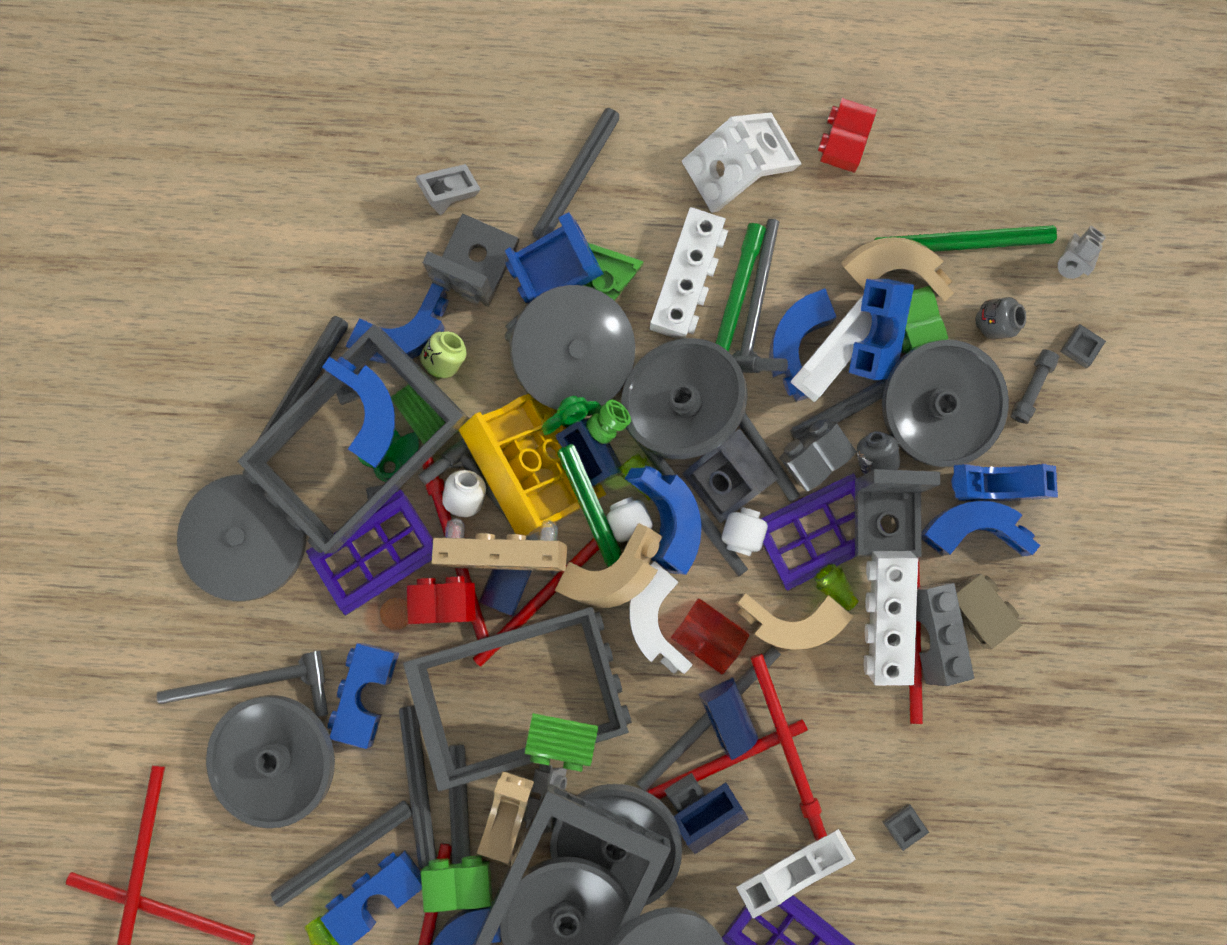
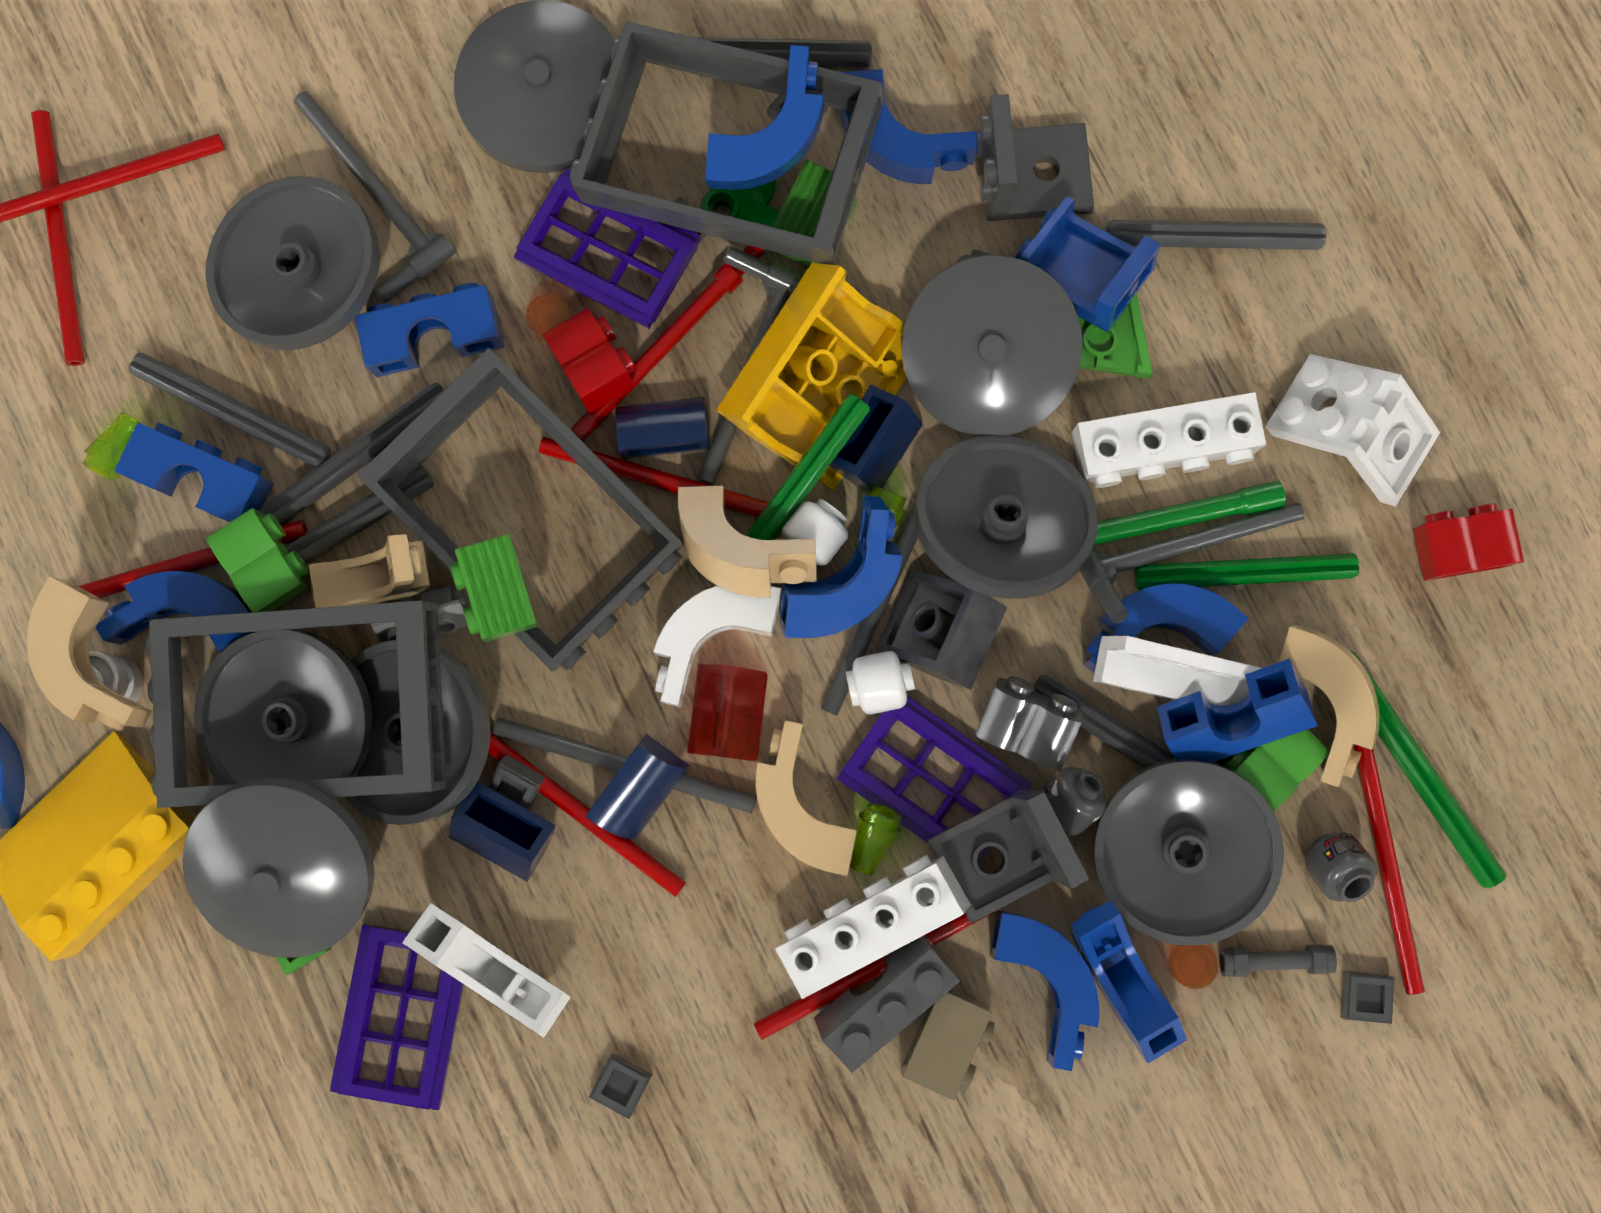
camera: 65 degrees right, 0 degrees up
(443, 354) = (895, 195): yellowish green head -> none
(447, 186) = (1107, 84): light grey slope -> none
(464, 493) = (737, 313): white head -> none
(493, 553) = (681, 386): tan piece -> none
(570, 411) = (909, 383): green plate -> none
(612, 418) = (923, 438): bright green wheel -> none
(764, 451) = (993, 662): dark grey bar -> none
(793, 273) = (1249, 571): none -> green axle
(809, 805) = (583, 948): red bar -> none
(1013, 438) = (1193, 965): none -> clear orange tile
(1018, 292) = (1389, 872): none -> red piece
(1081, 253) = (1488, 929): light grey hips -> none

